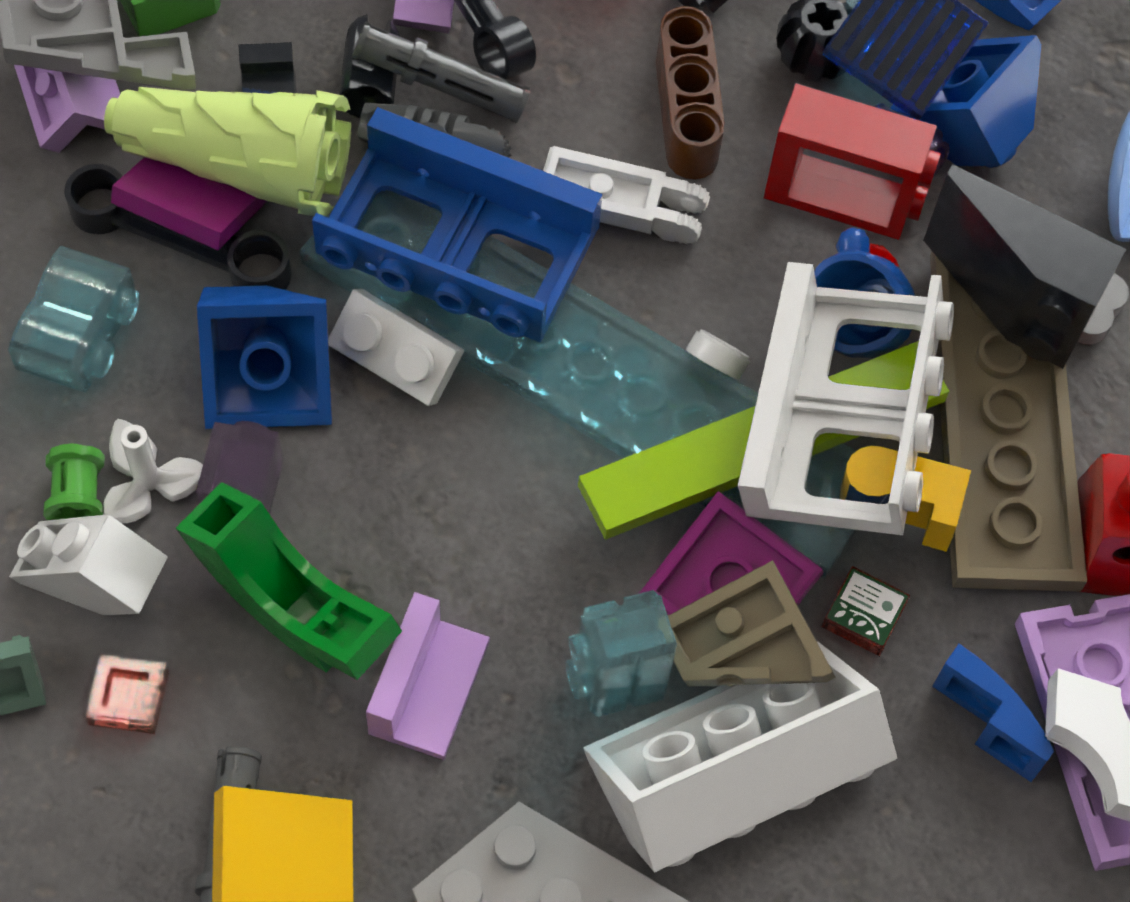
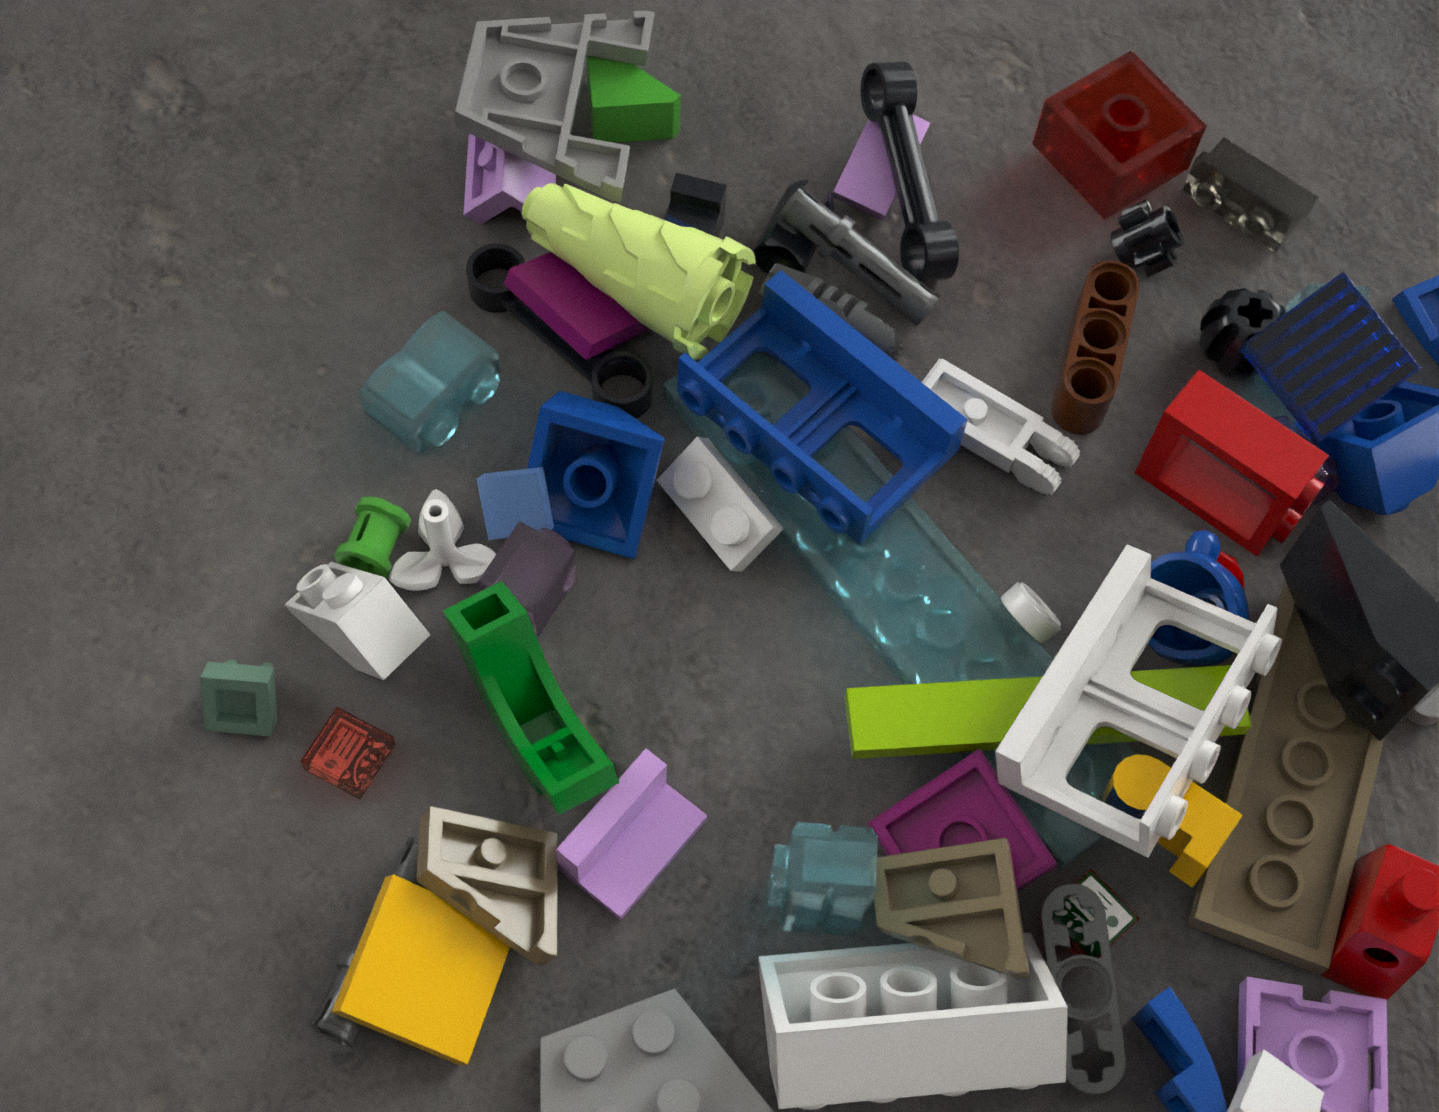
camera: 20 degrees right, 0 degrees up
(197, 403) = (514, 498): none -> medium blue tile
(315, 757) = (494, 876): none -> dark tan wing
(874, 620) = (1093, 932): none -> dark grey beam

